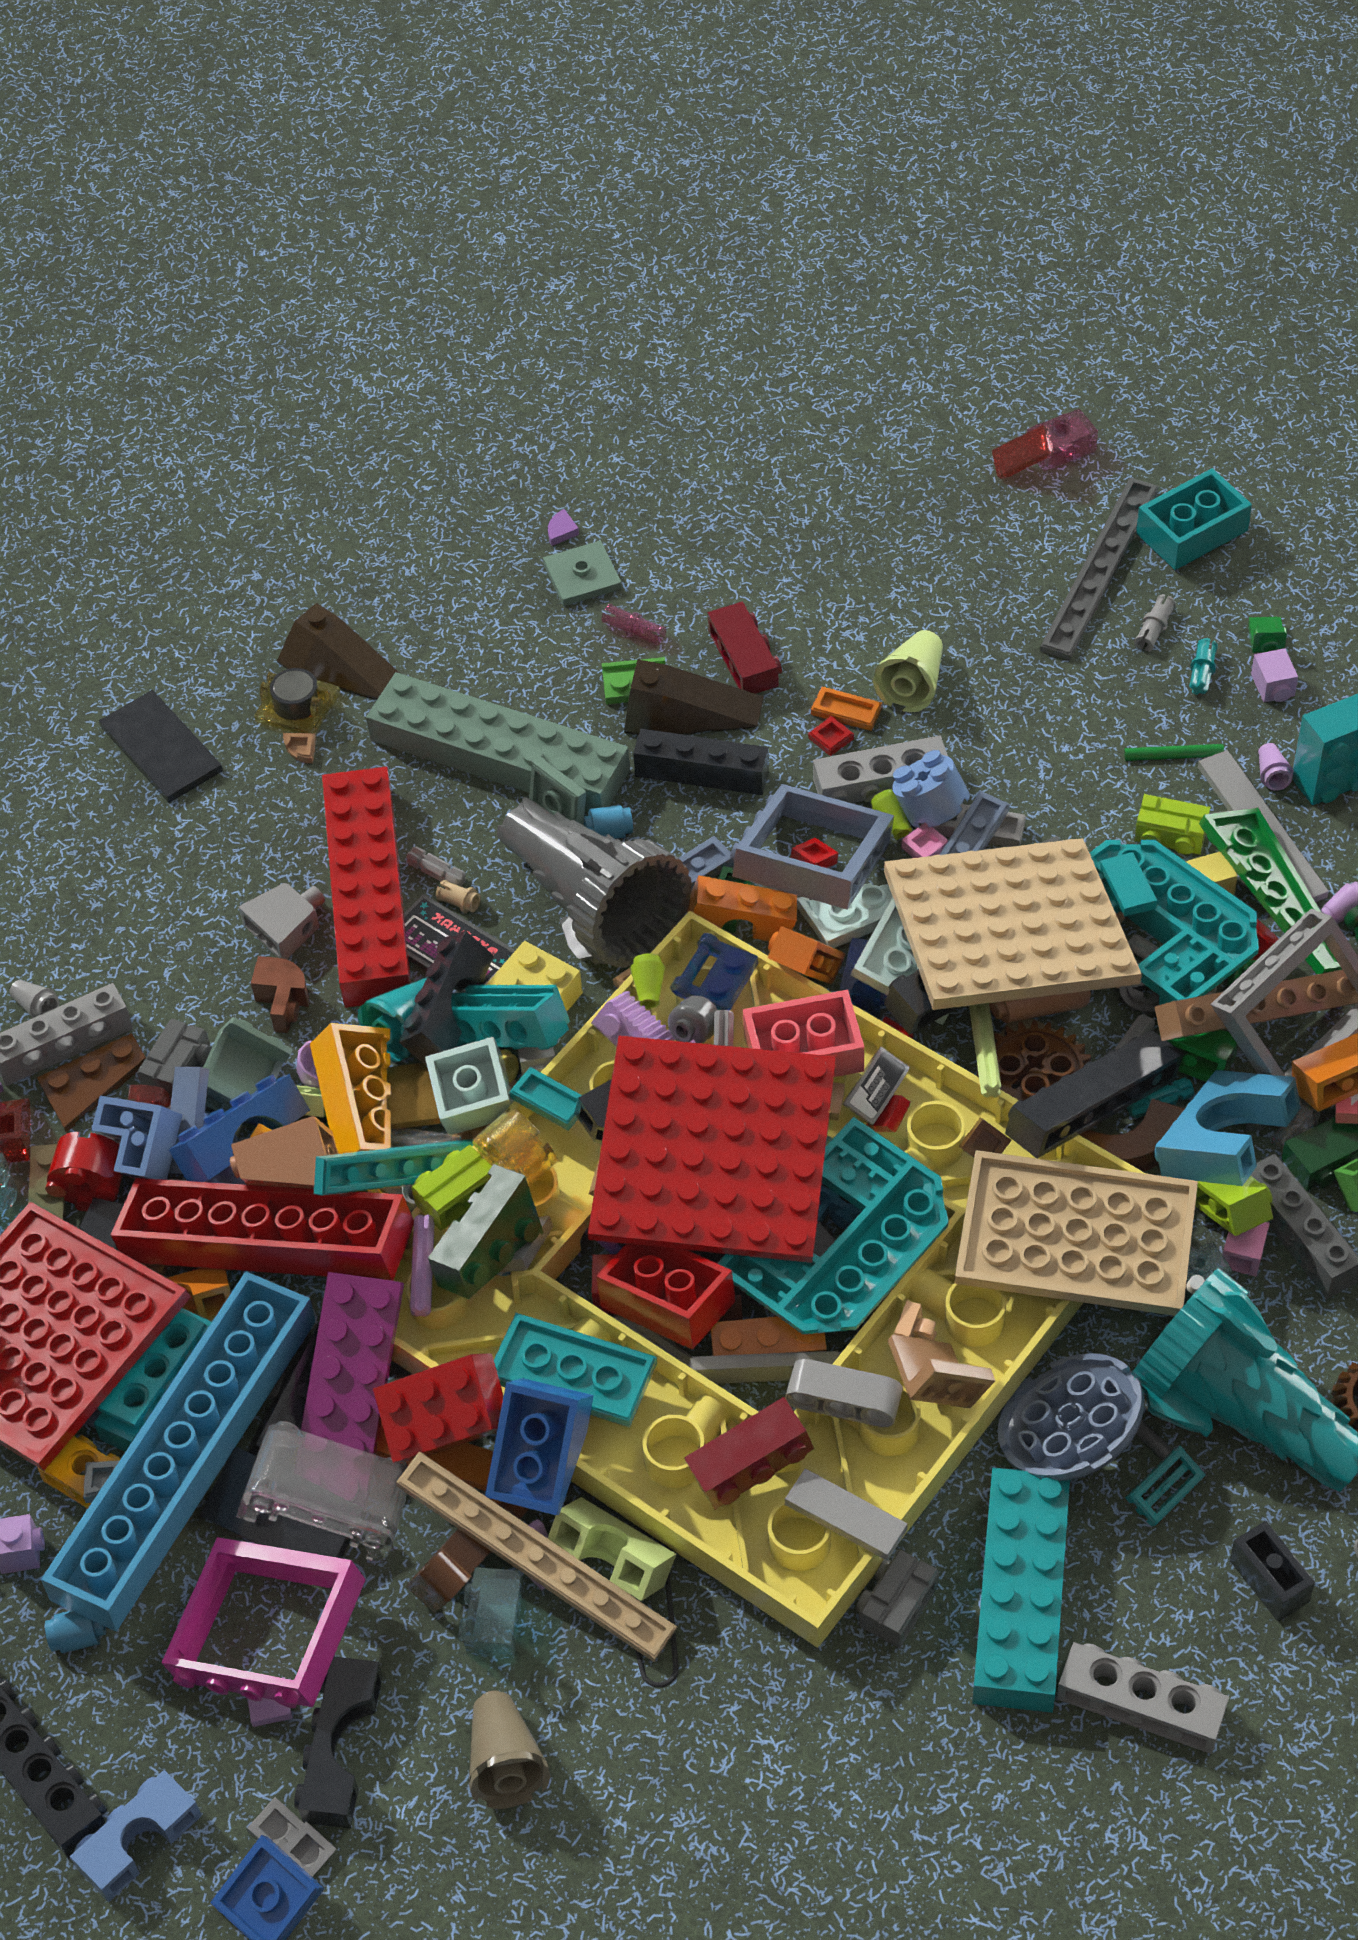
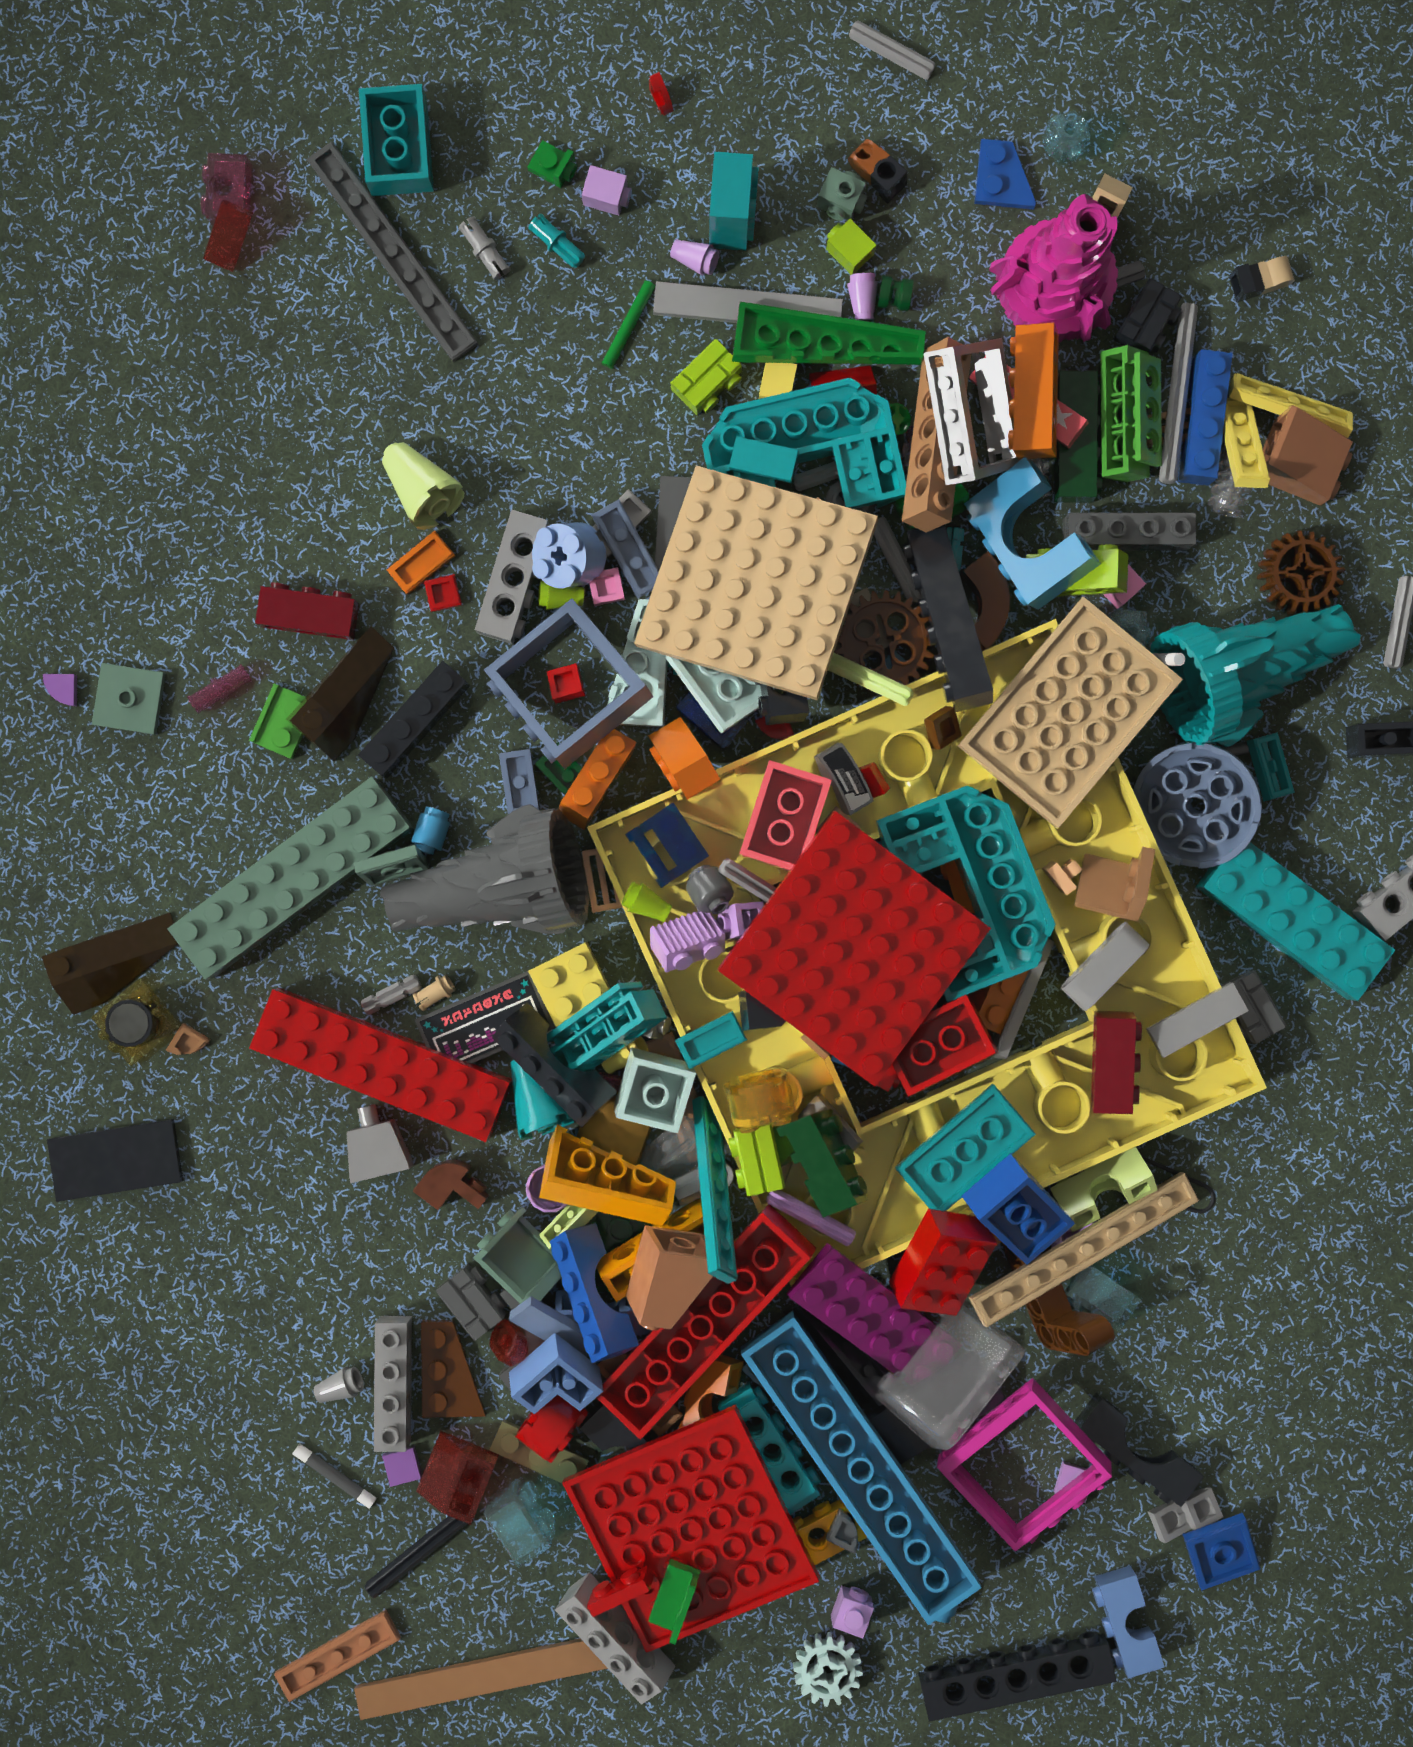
camera: 65 degrees left, 35 degrees up
(503, 1754) = (1210, 1343): dark tan cone -> none

